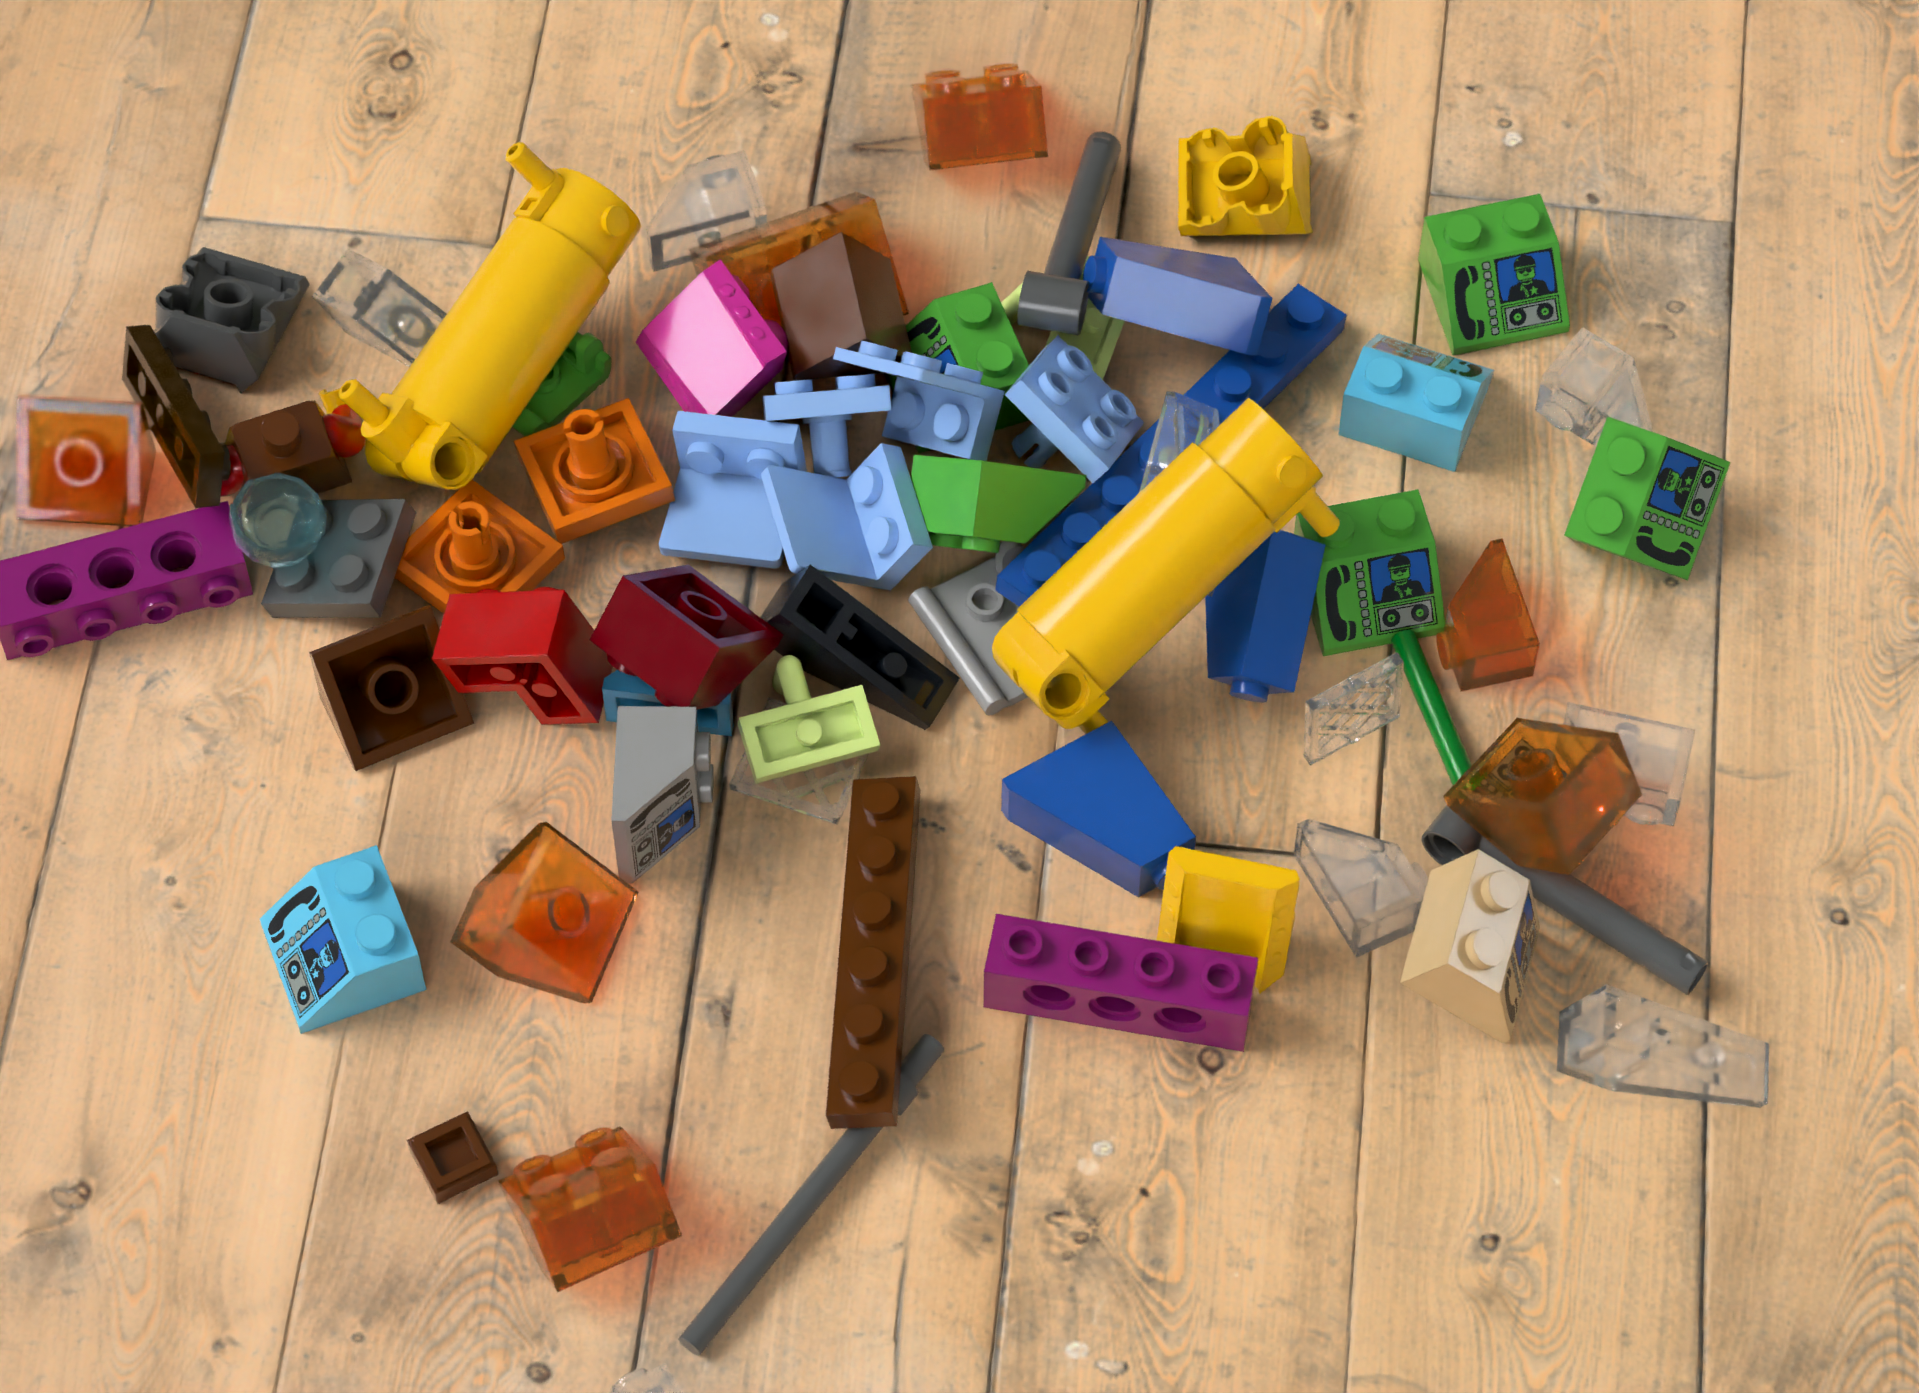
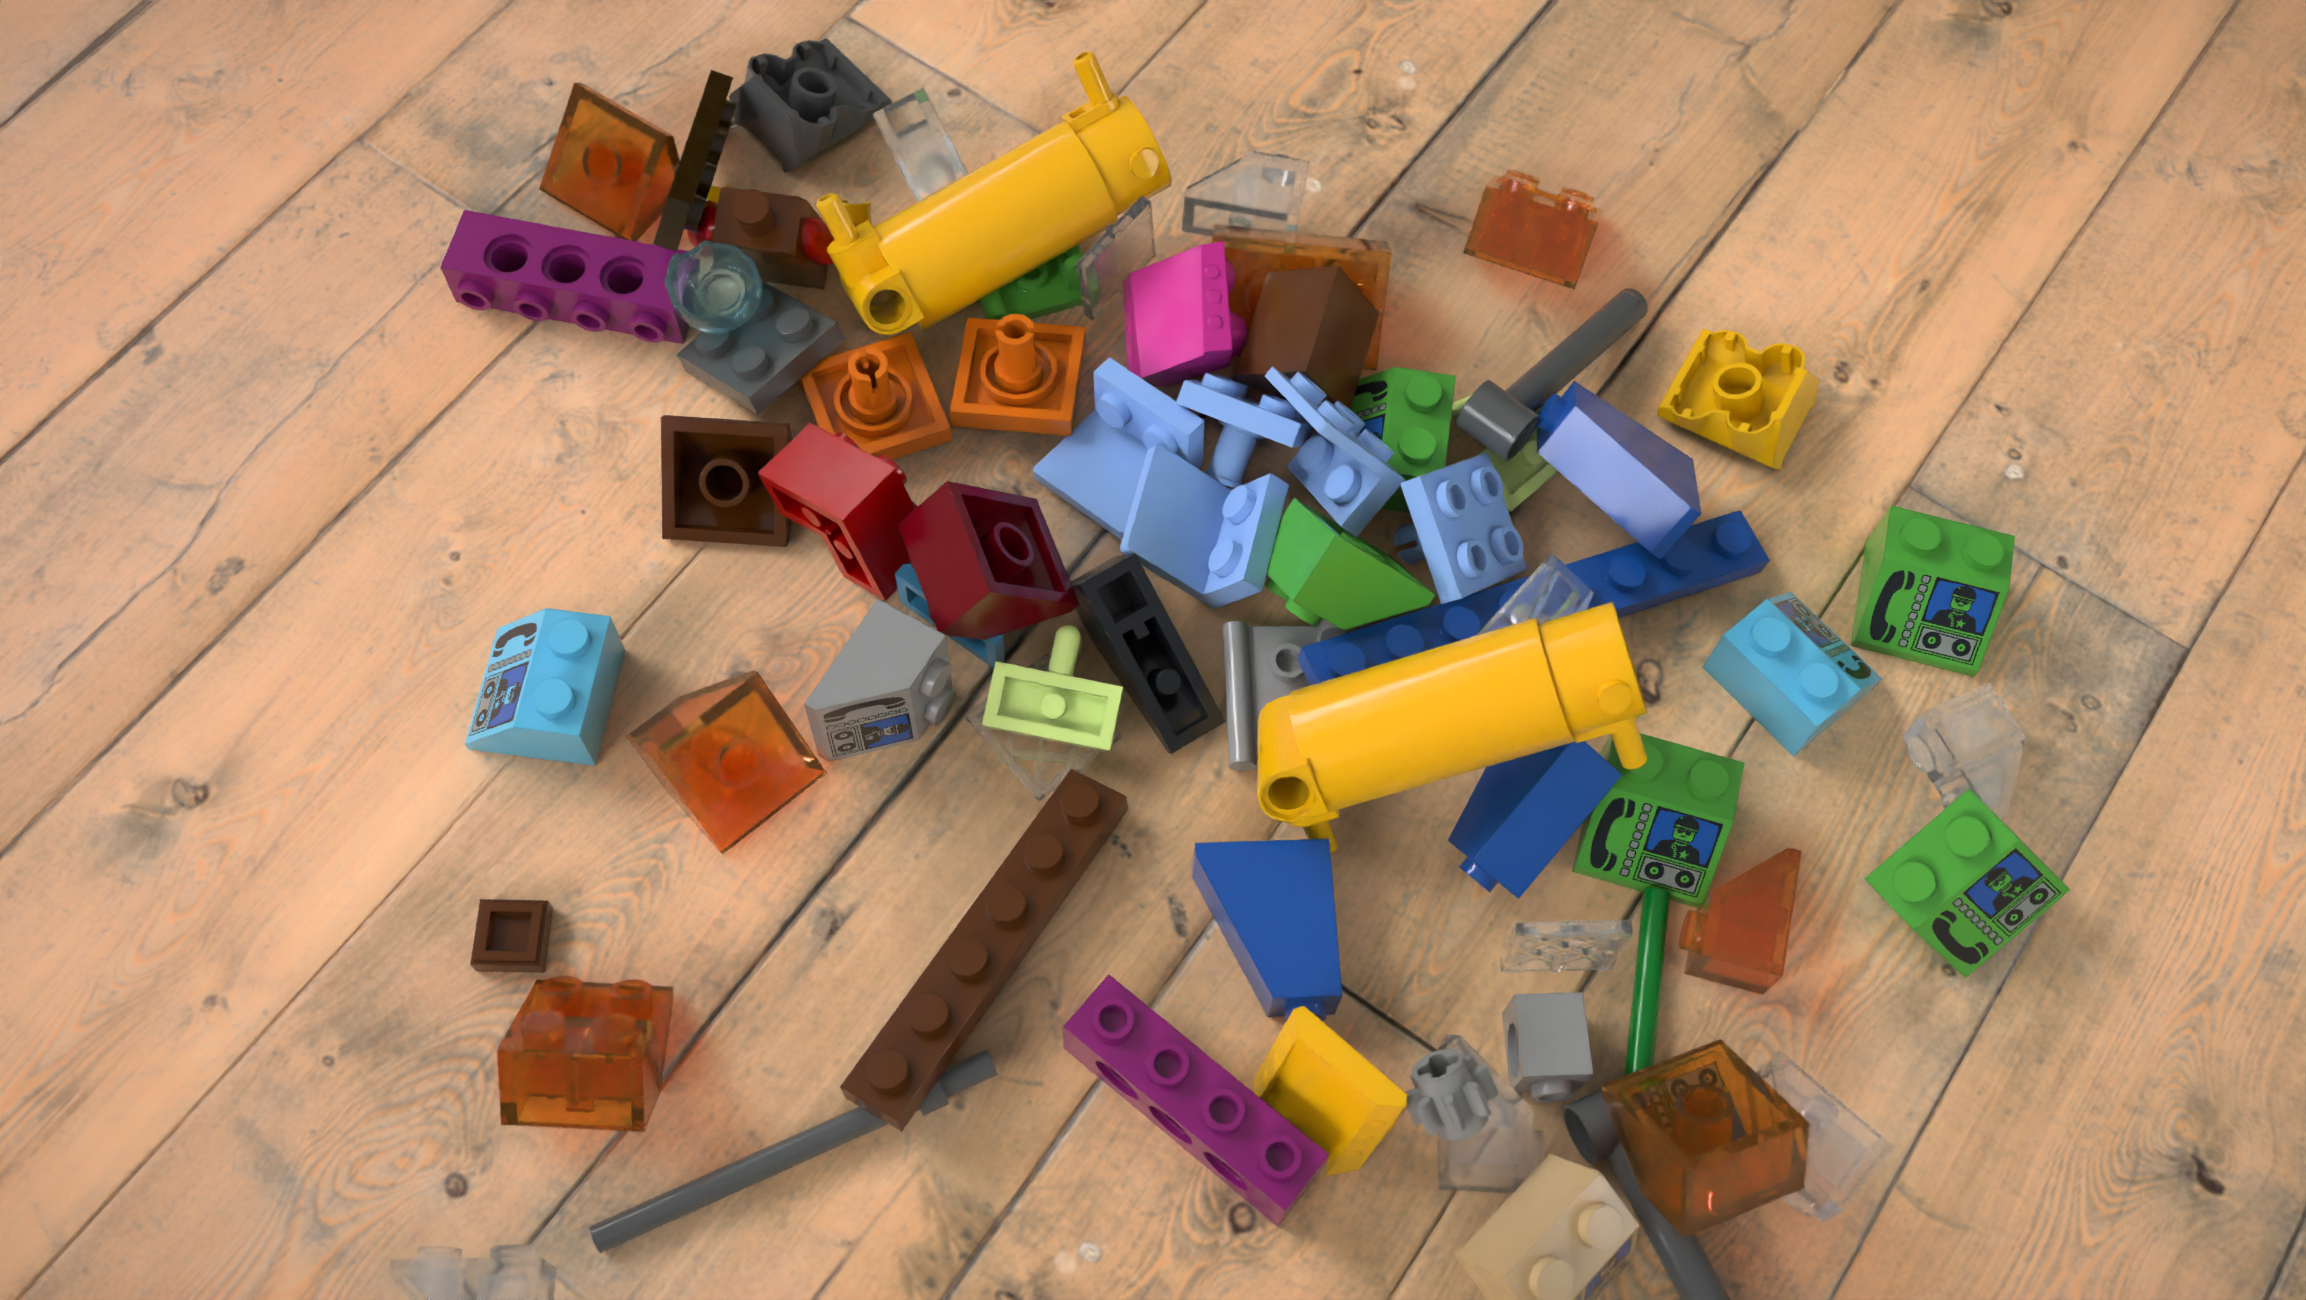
camera: 25 degrees right, 5 degrees up
(623, 322) = (1120, 251): none -> clear piece
(1329, 858) = (1450, 1094): none -> light grey gear
(1381, 794) = (1547, 1045): none -> light grey brick

